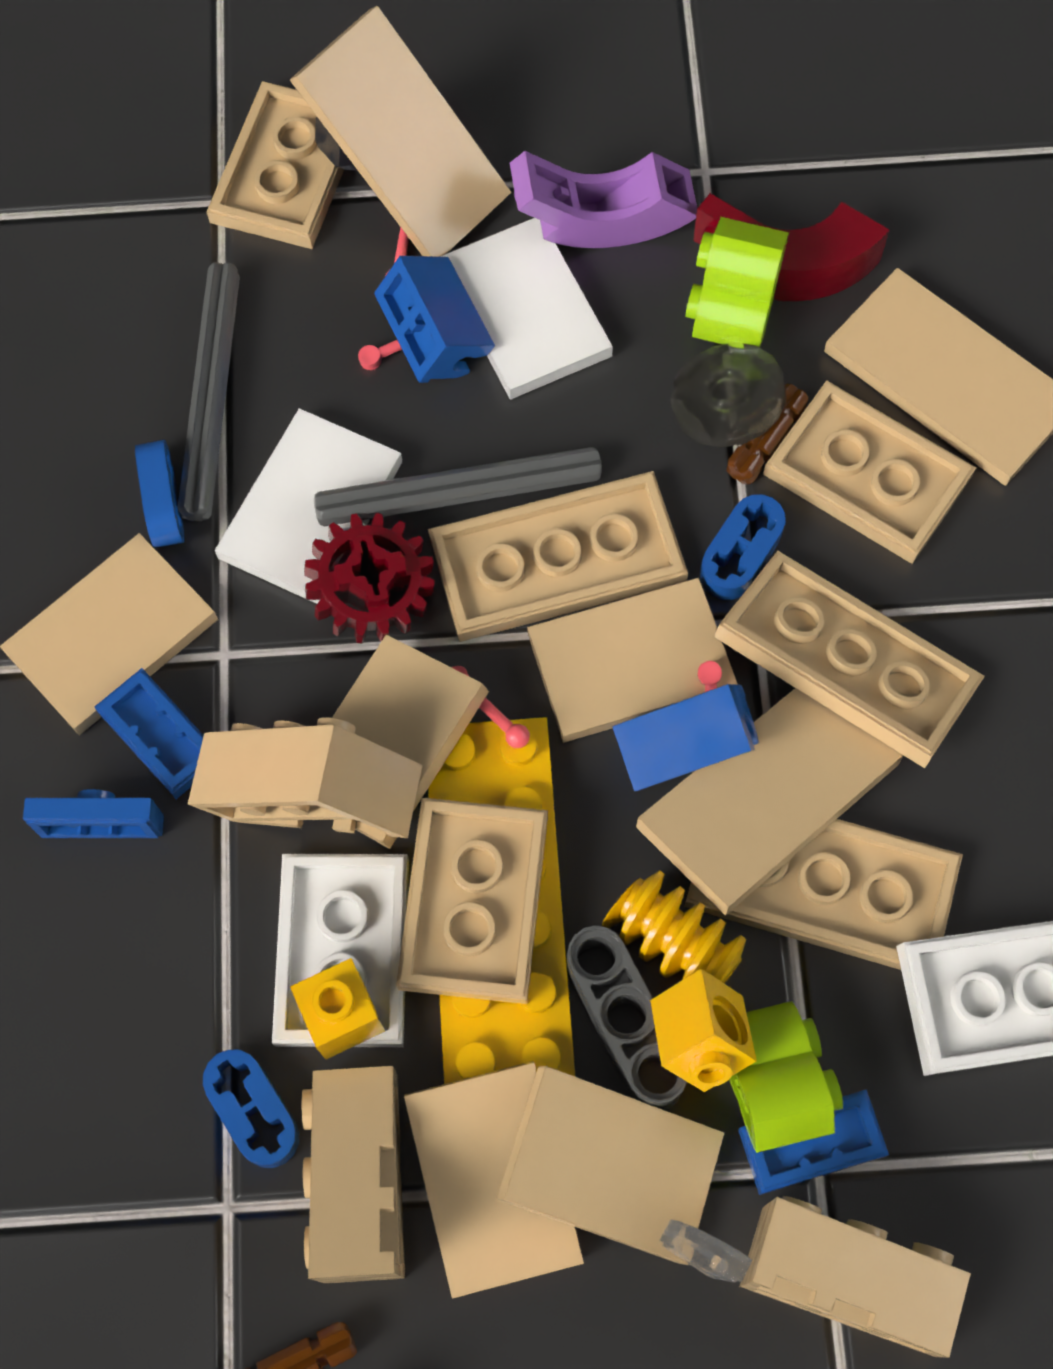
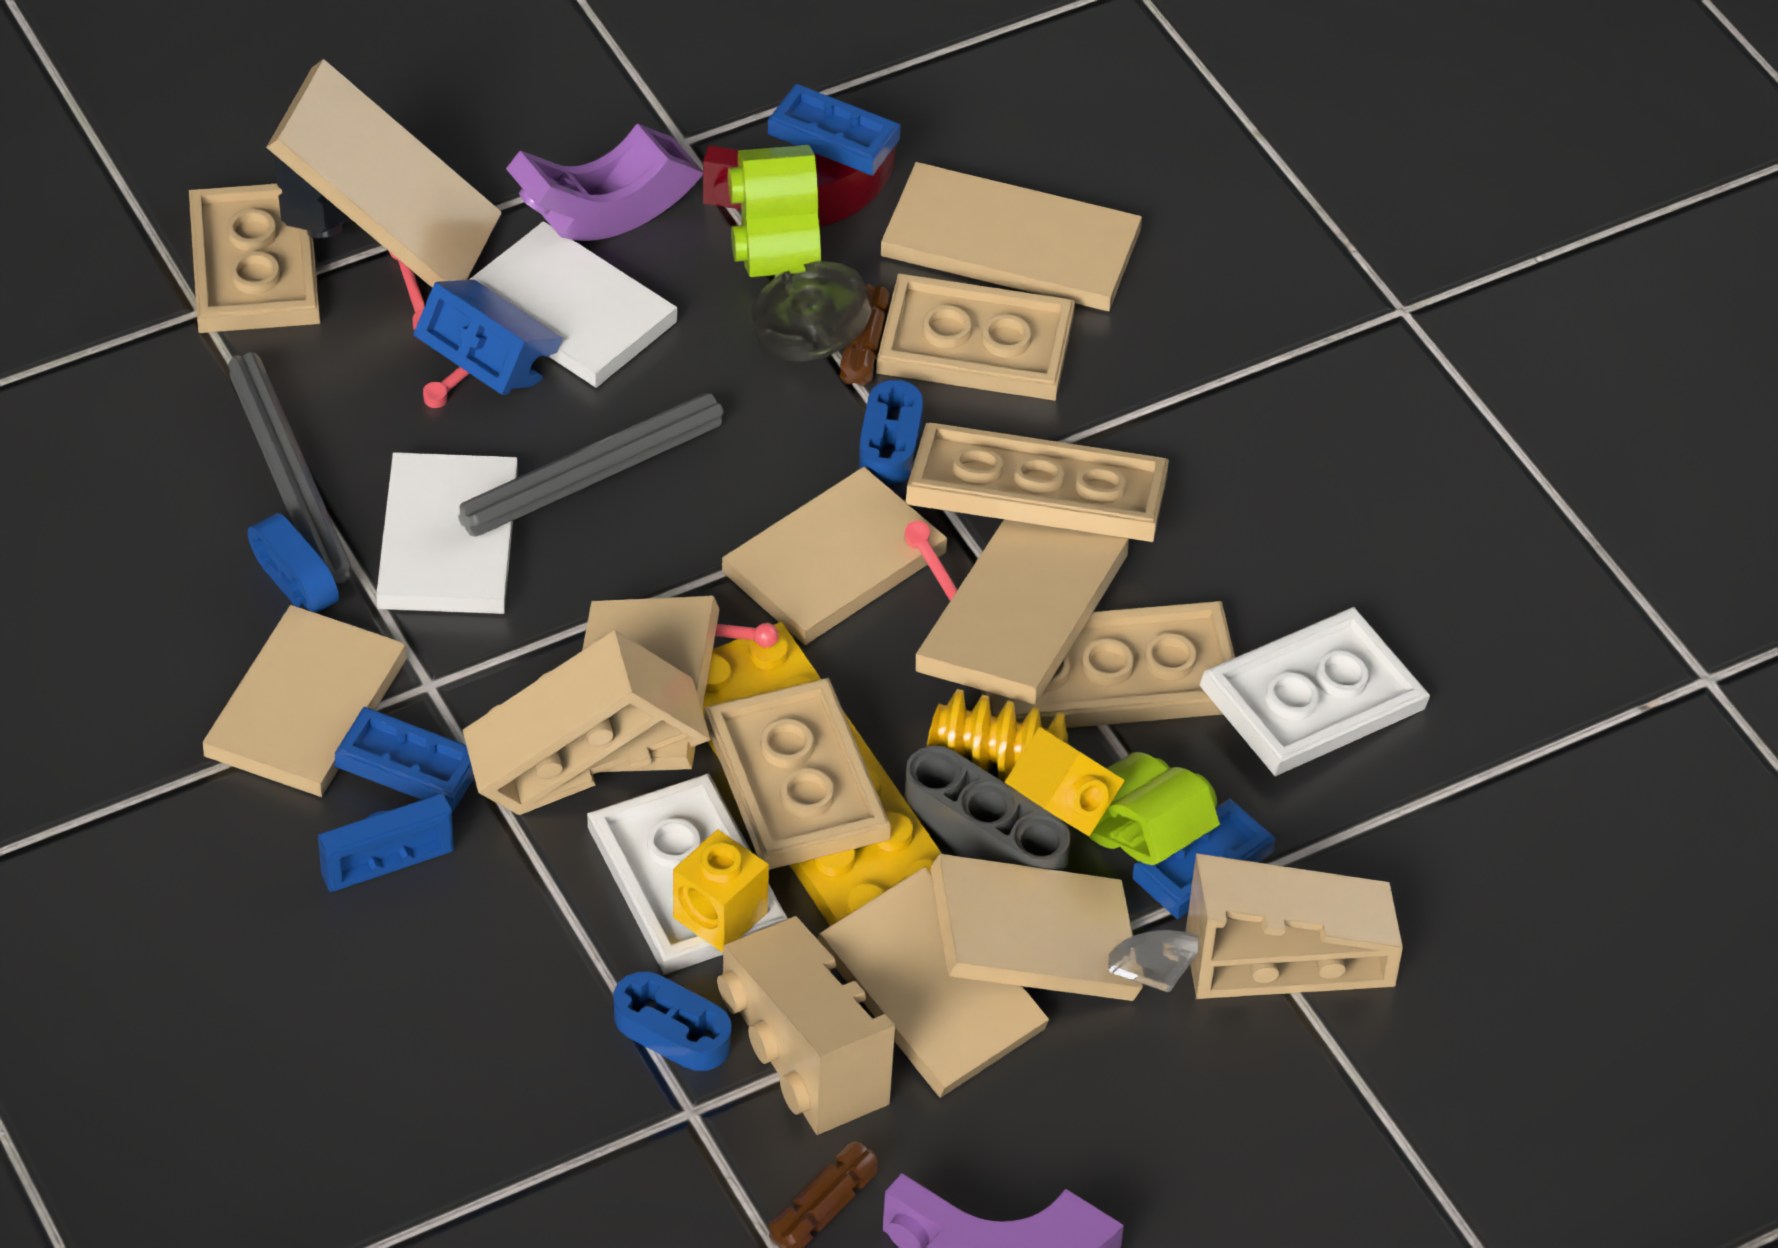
camera: 30 degrees left, 20 degrees down
(347, 585) = (547, 563): dark red gear -> none
(557, 556) = (713, 497): tan tile -> none
(686, 736) = (922, 579): blue hinge -> none
(825, 219) = (834, 129): none -> blue plate

